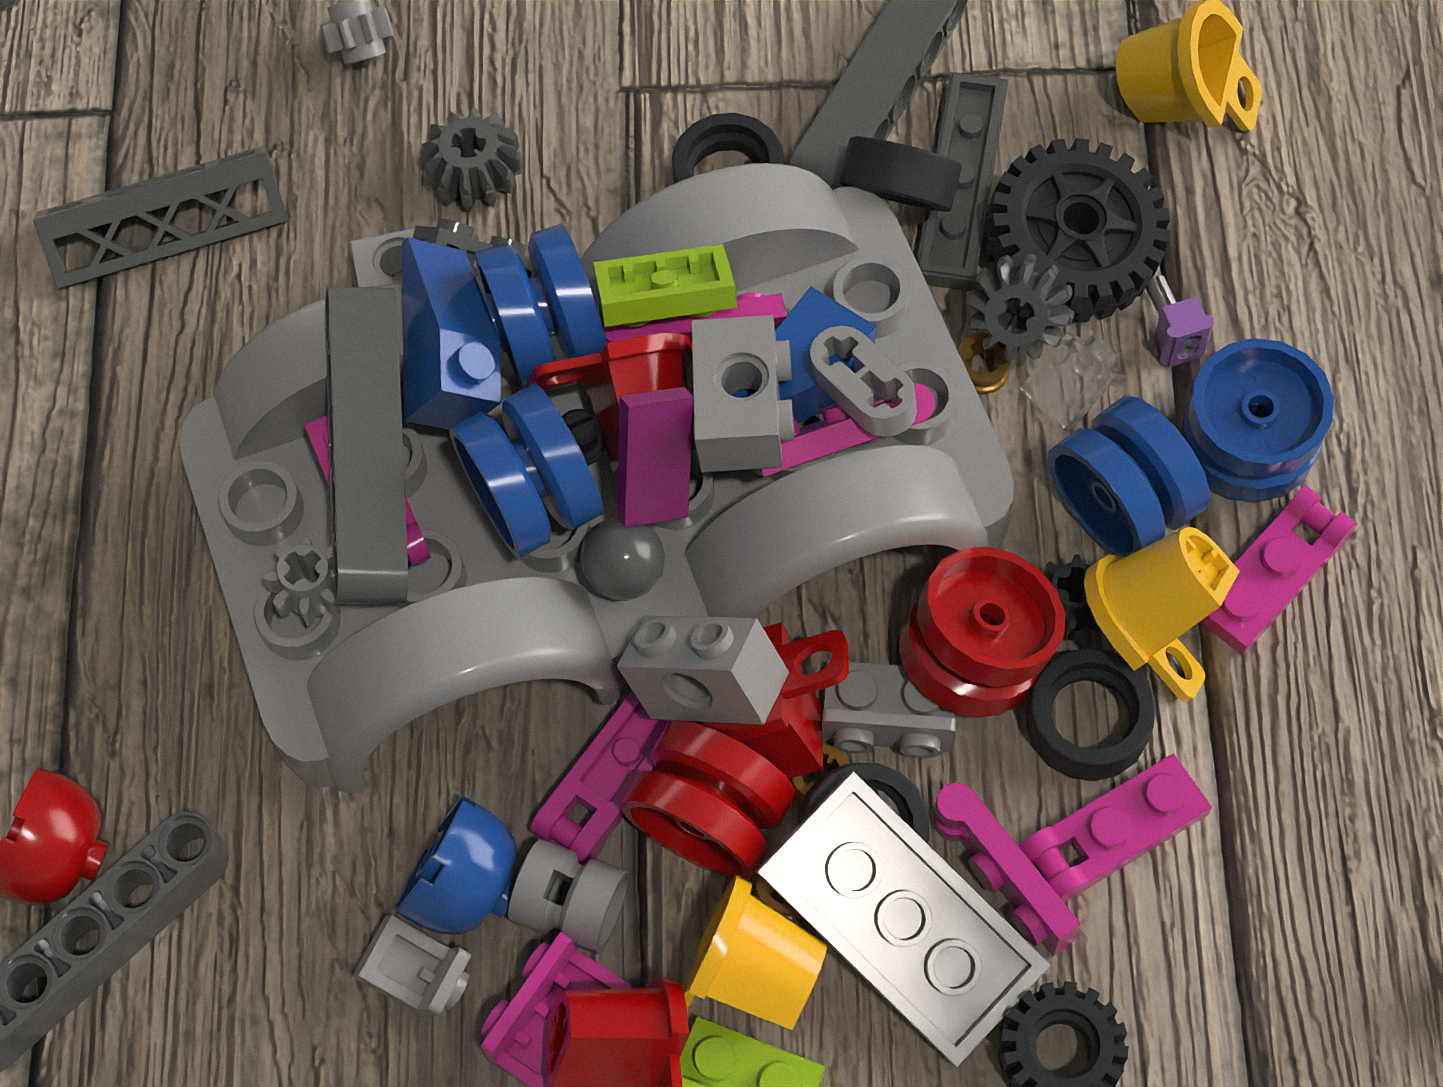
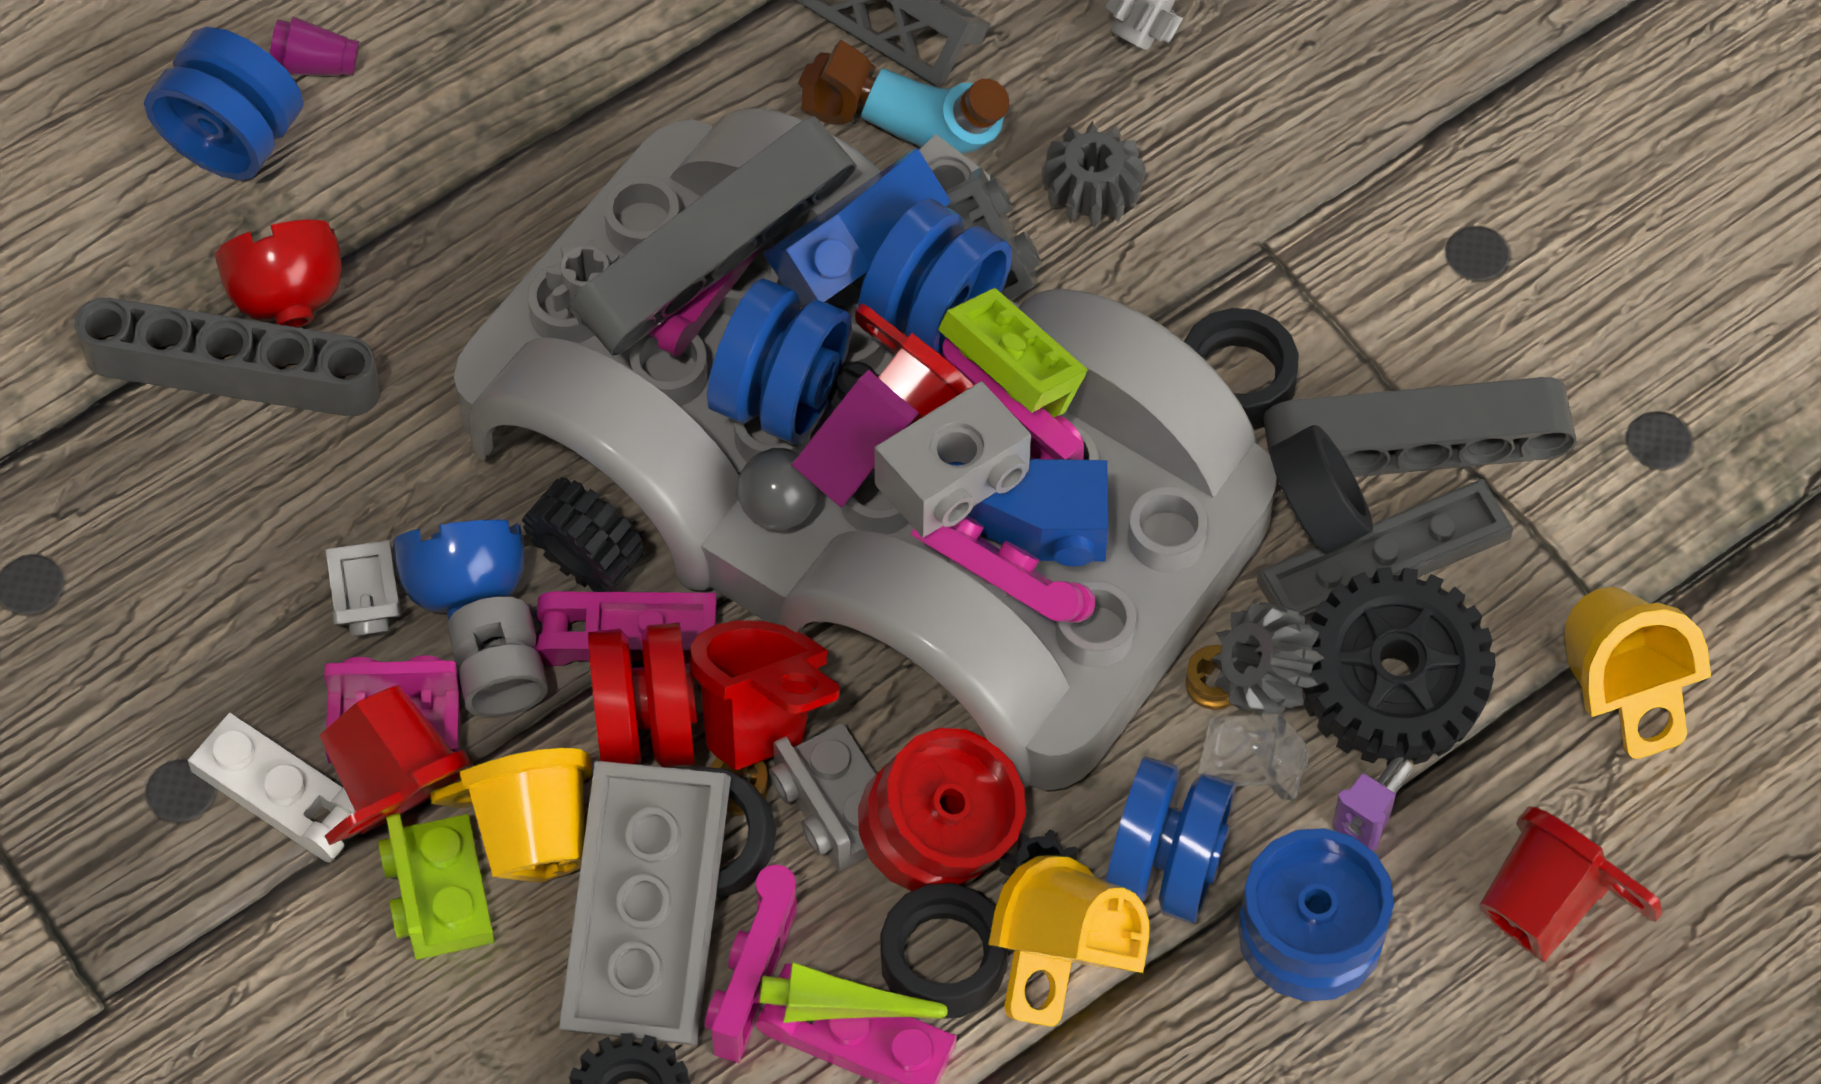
camera: 50 degrees right, 5 degrees down
(317, 241) = (913, 111): none -> piece
(511, 750) = (583, 535): none -> black tyre
(703, 669) = (729, 608): light grey brick -> none
(853, 390) = (1052, 547): light grey beam -> none
(1079, 835) = (821, 996): none -> lime piece
(1278, 569) = (1196, 1023): dark pink plate -> none
(1342, 241) = (1553, 883): none -> red container

